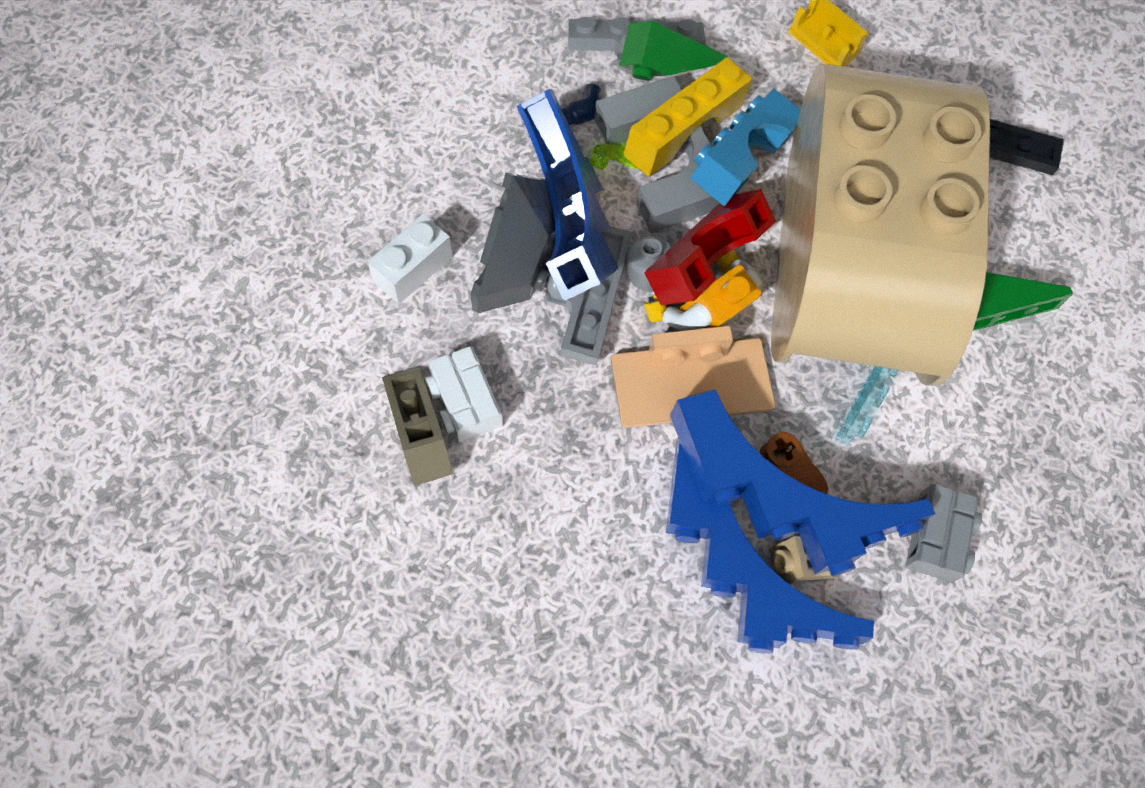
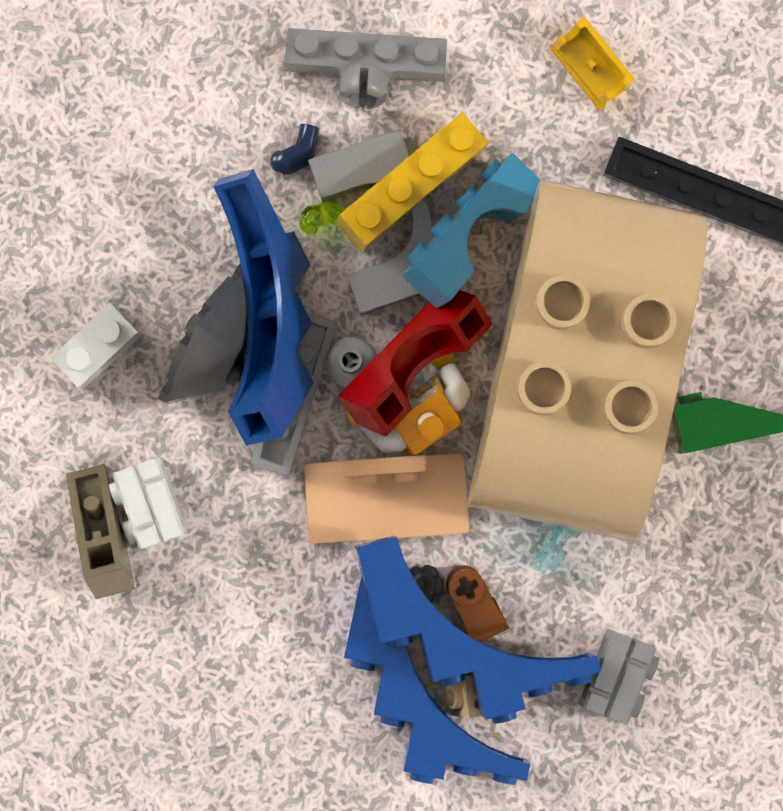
camera: 10 degrees right, 20 degrees up
(663, 52) = (393, 106): green slope -> none

